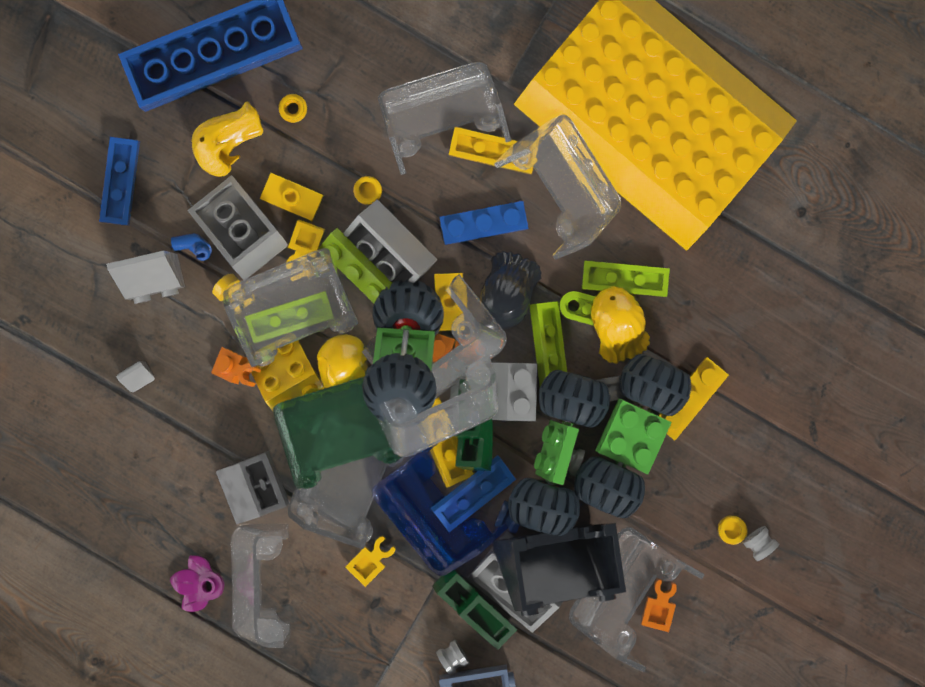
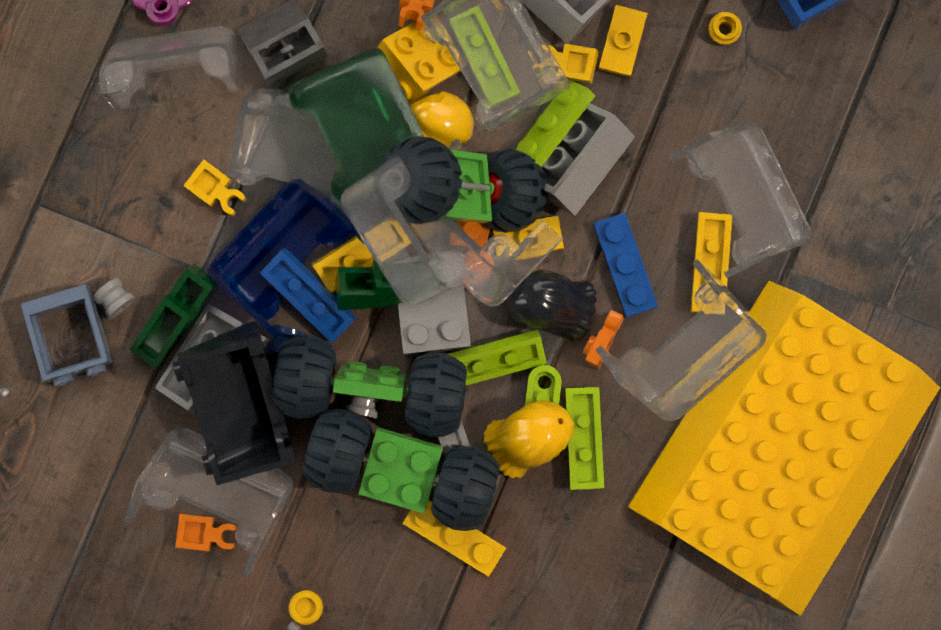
camera: 85 degrees right, 5 degrees down
(367, 190) = (643, 126): yellow tile -> none
(544, 250) = (604, 338): none -> orange plate

